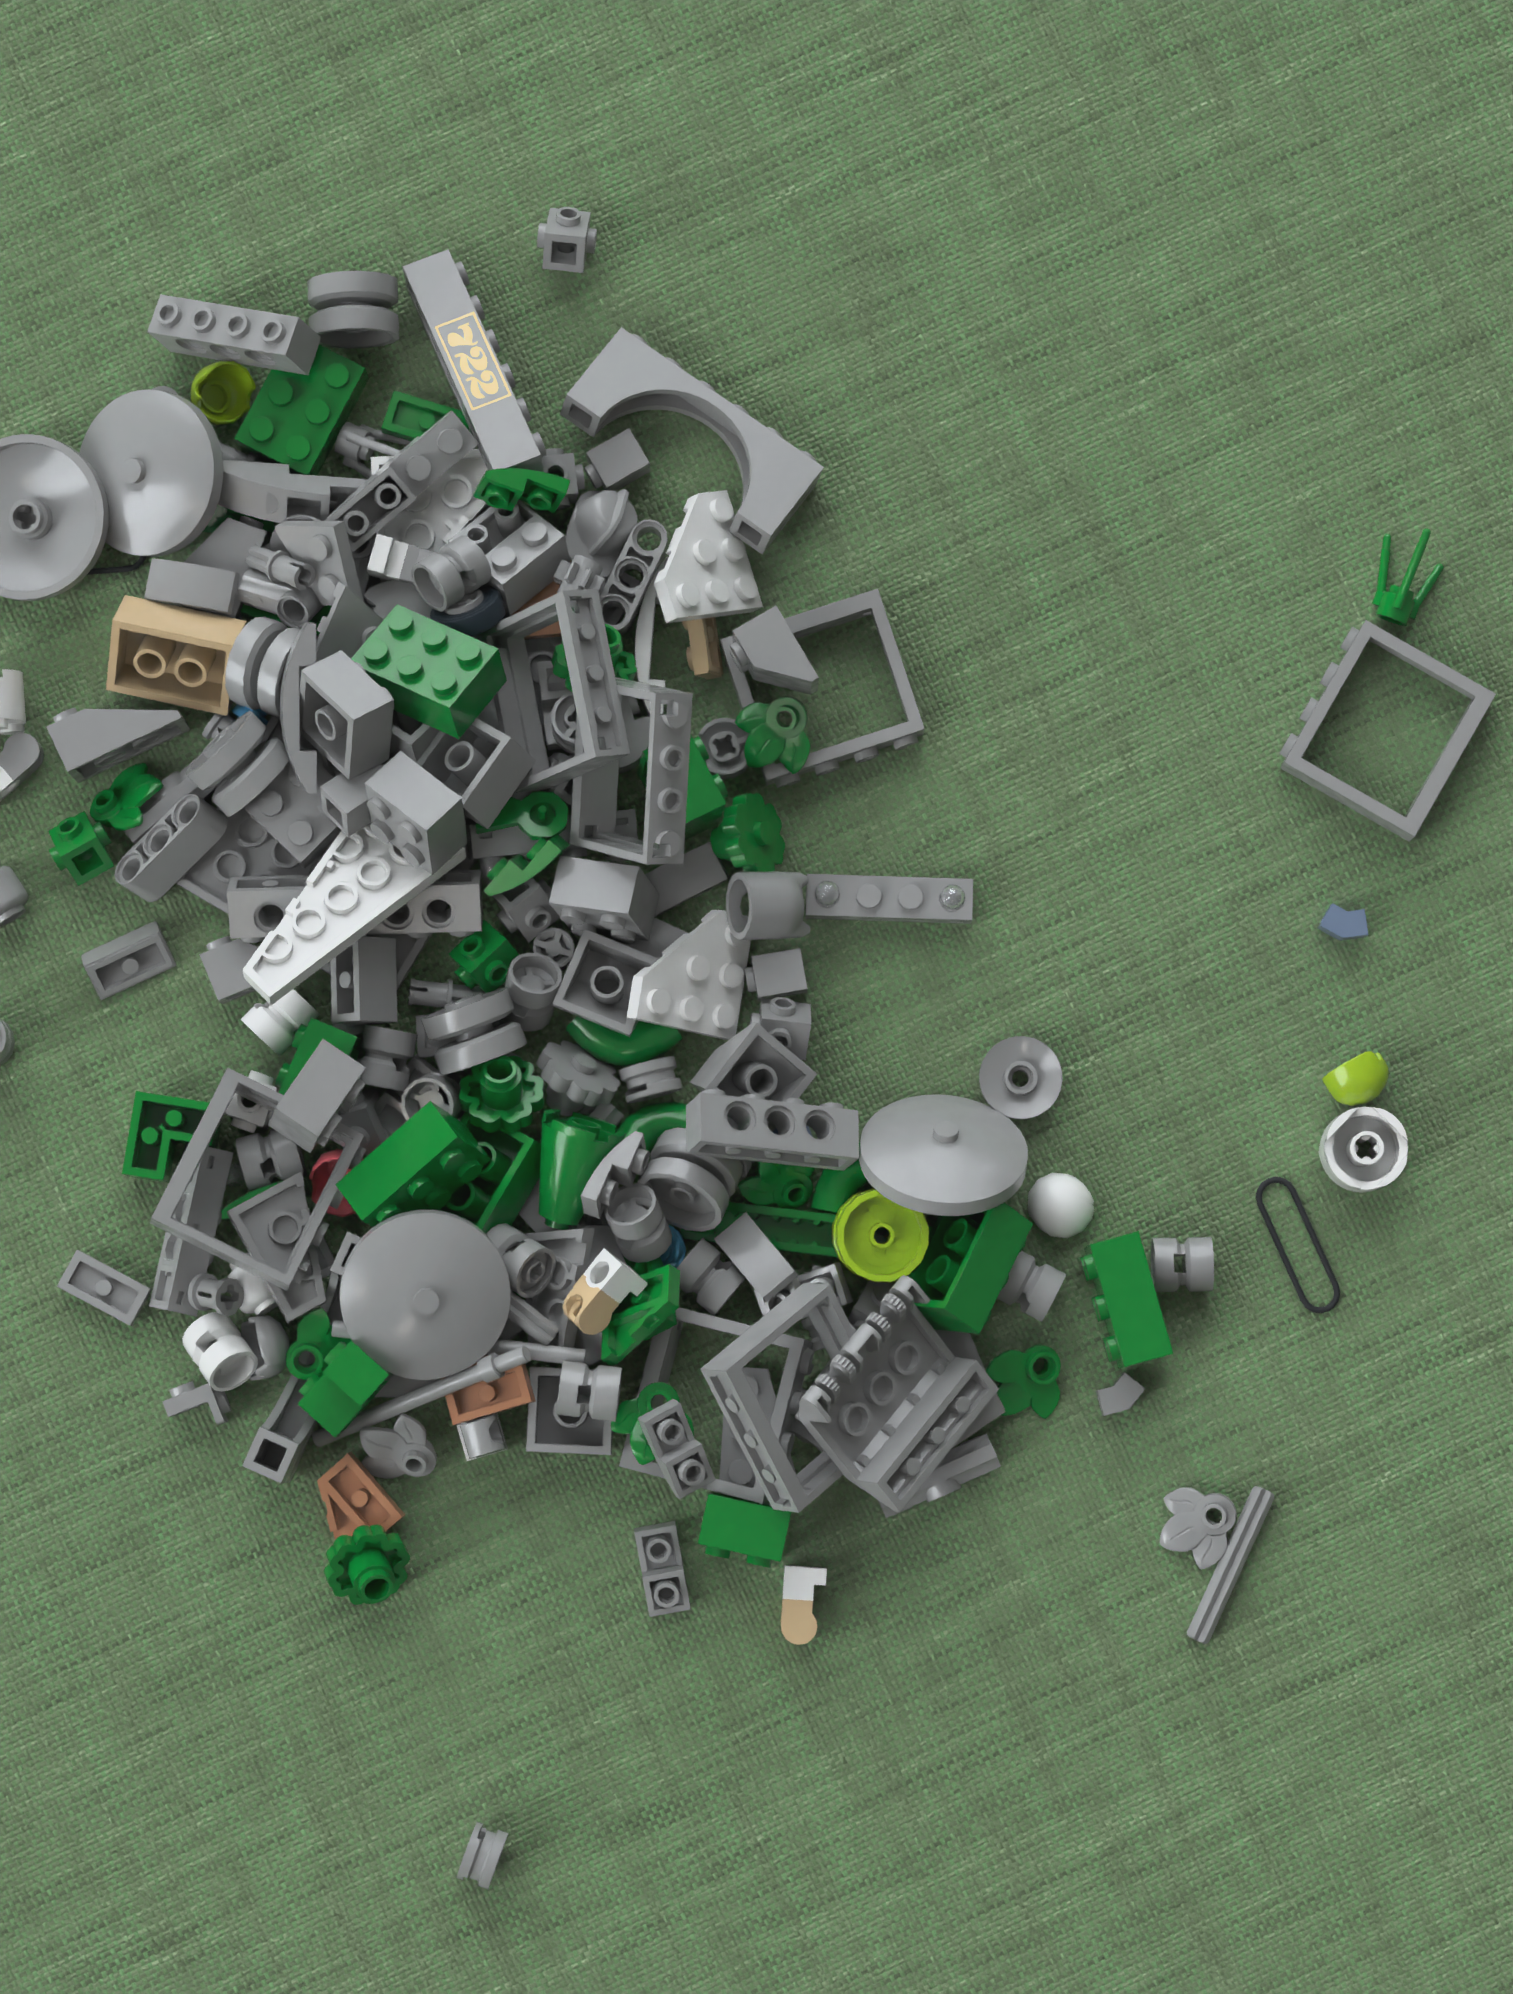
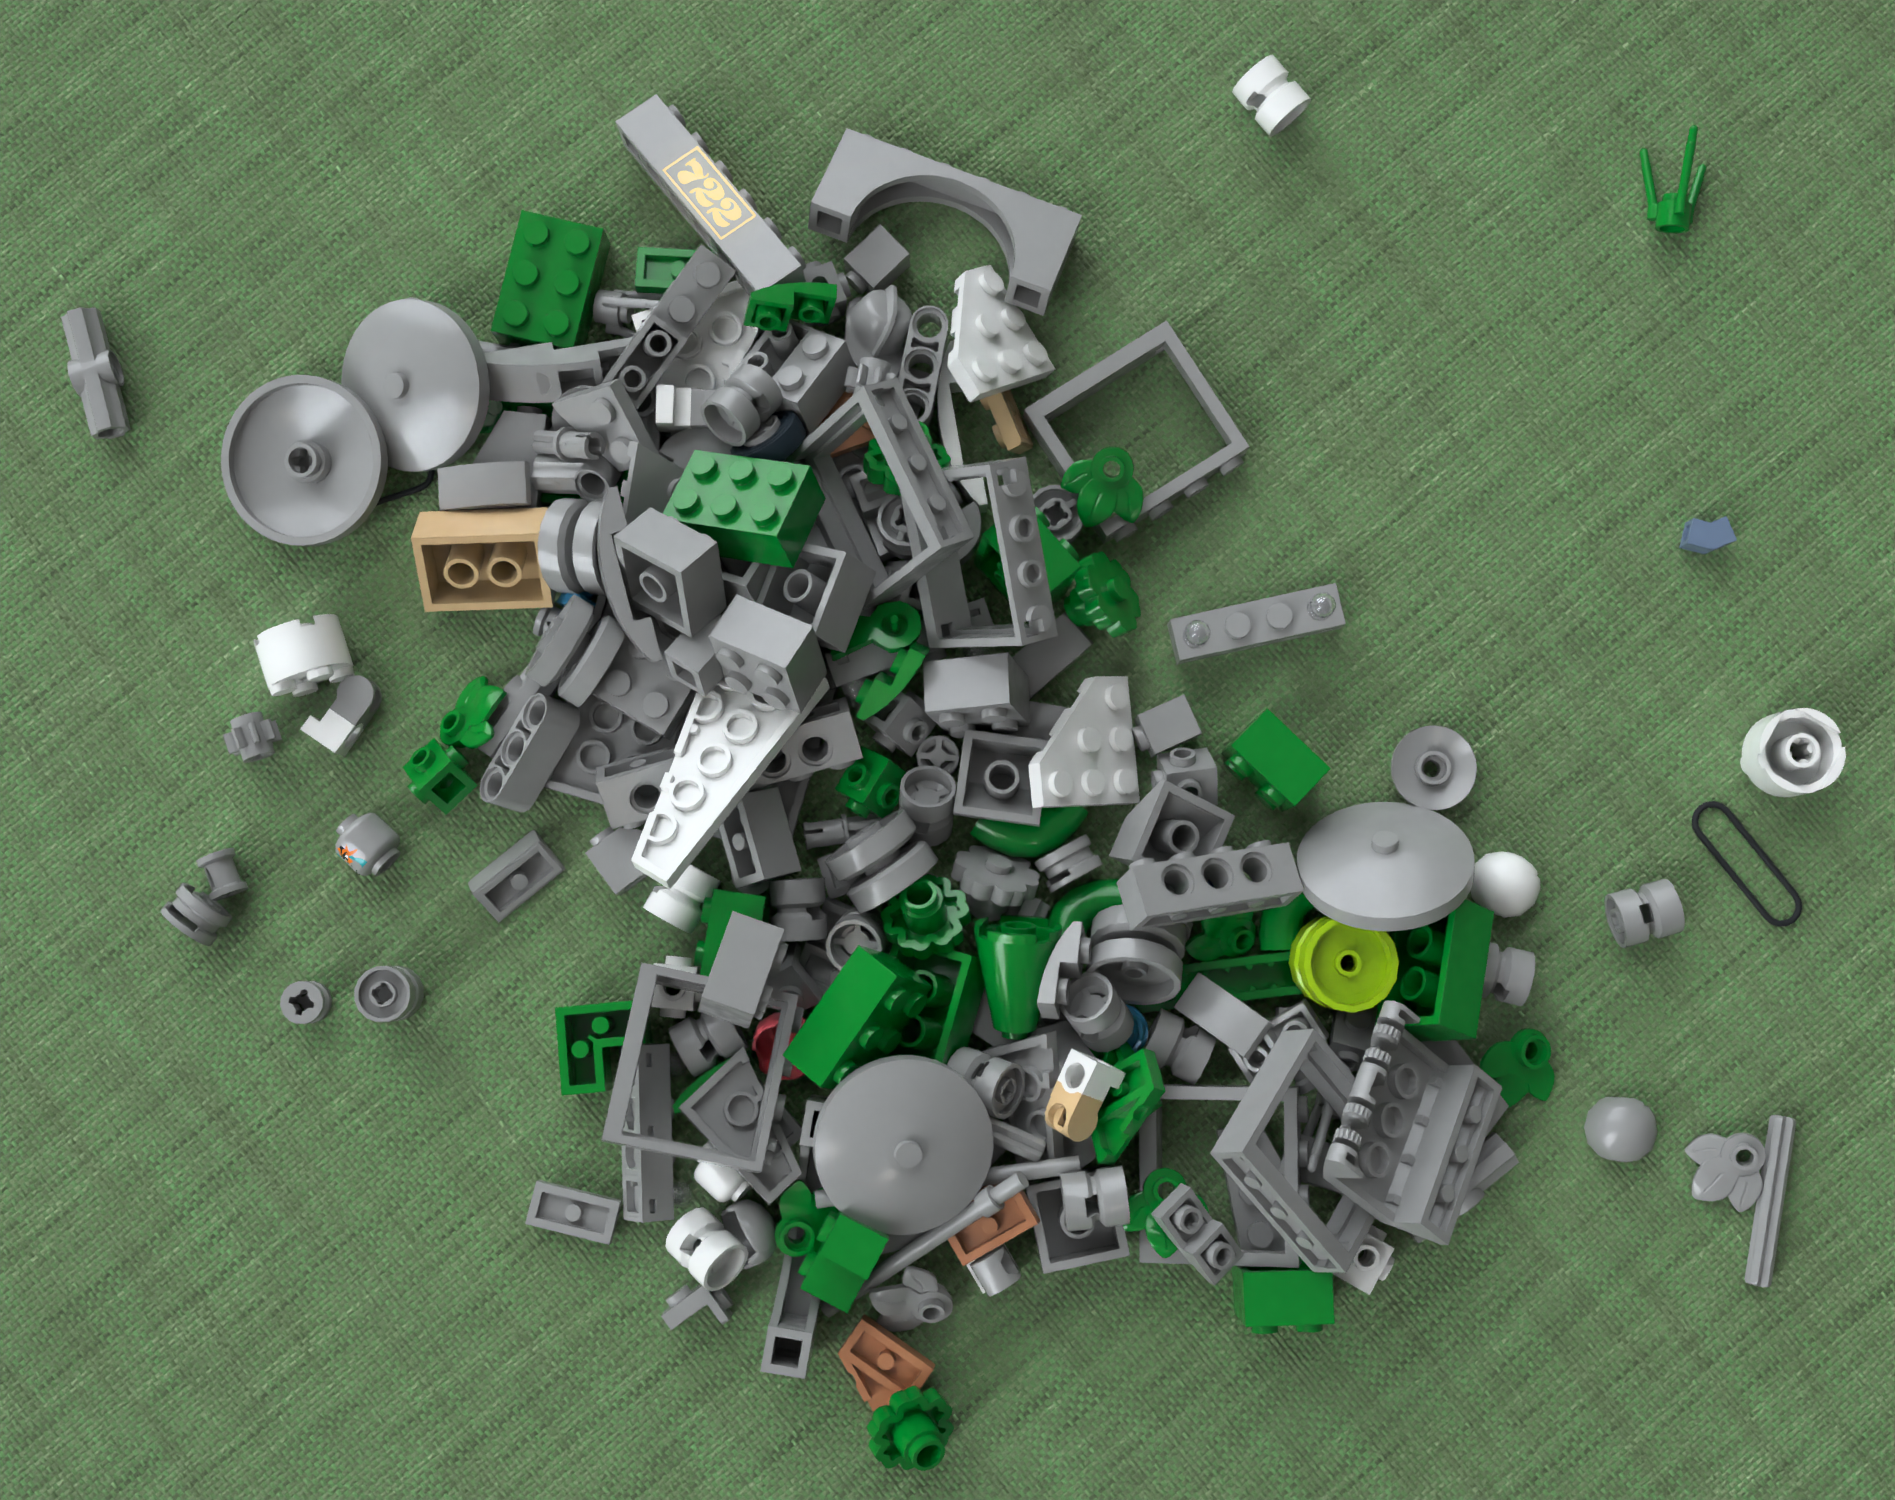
camera: 15 degrees left, 0 degrees up
(104, 738) = (435, 660): light grey slope -> none
(209, 1284) = (687, 1191): light grey bush -> none
(222, 391) = (469, 288): lime hair -> none
(234, 334) = (465, 226): light grey brick -> none
(354, 309) = (577, 174): light grey wheel -> none
(566, 239) = (770, 57): light grey brick -> none
(662, 1568) = (1206, 1351): light grey slope -> none
(773, 653) = (1086, 406): light grey slope -> none
(774, 905) = (1150, 656): light grey piece -> none
(797, 1619) = (1353, 1351): leg -> none
(826, 1531) = (1374, 1263): none -> white brick
(867, 1032) = (1274, 762): none -> green brick
(1038, 395) = (1271, 95): none -> white wheel
(1108, 1462) = (1621, 1129): none -> light grey hair
(1120, 1395) = (1614, 1060): light grey piece -> none
(1126, 1300) = (1603, 964): green brick -> none
(1317, 709) = (1764, 355): light grey window -> none
(1358, 1079) = (1769, 686): lime hair -> none

